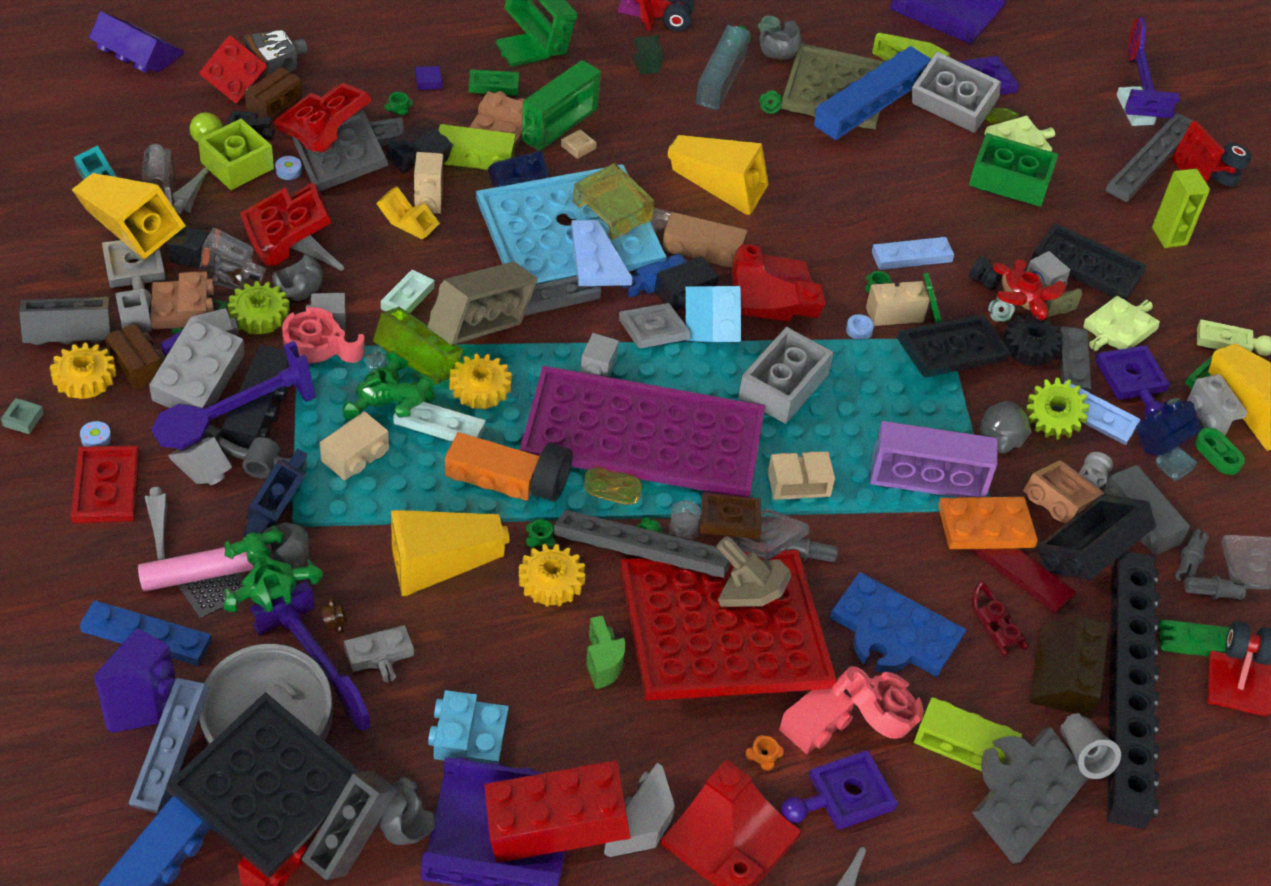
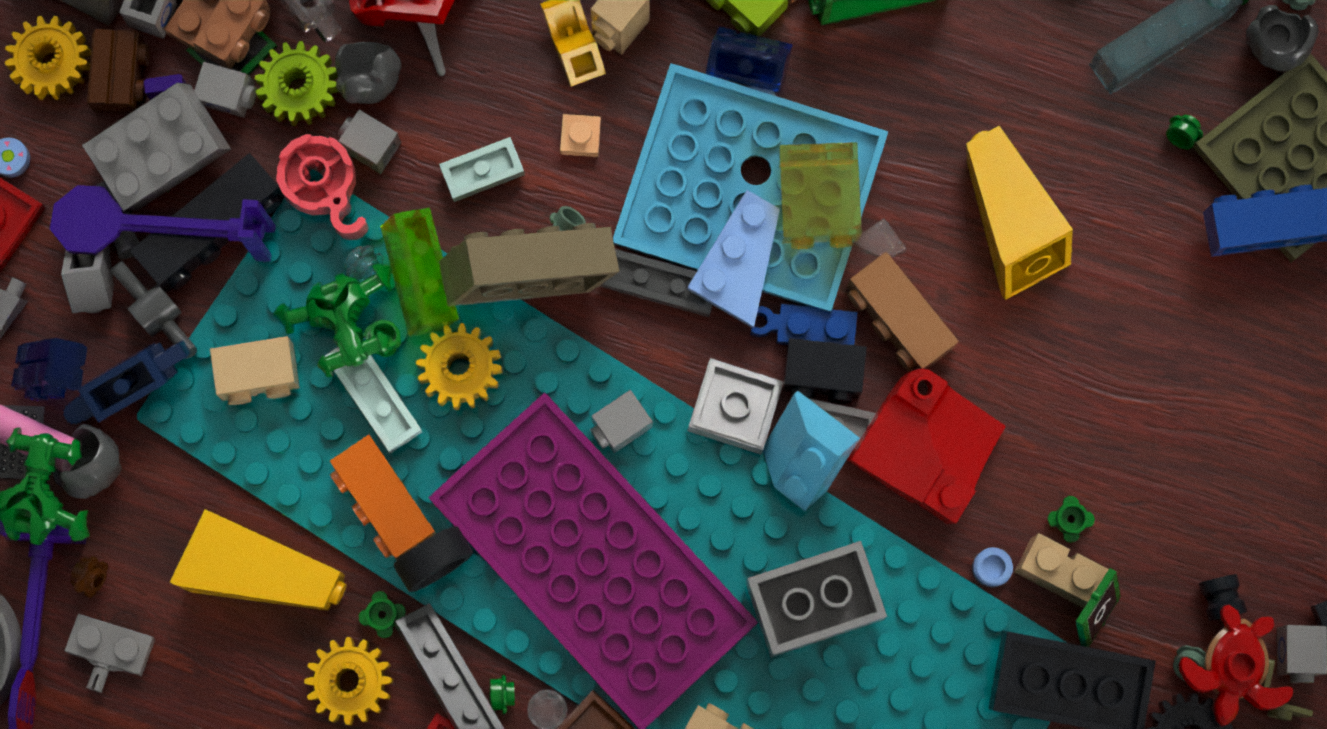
camera: 40 degrees right, 30 degrees up
(218, 510) = (49, 368): none -> clear blue brick
(450, 255) = (580, 135): none -> light nougat plate
(578, 144) = (875, 46): tan tile -> none
(611, 486) = (502, 608): clear yellow plate -> none
(912, 253) = (1161, 497): light blue plate -> none

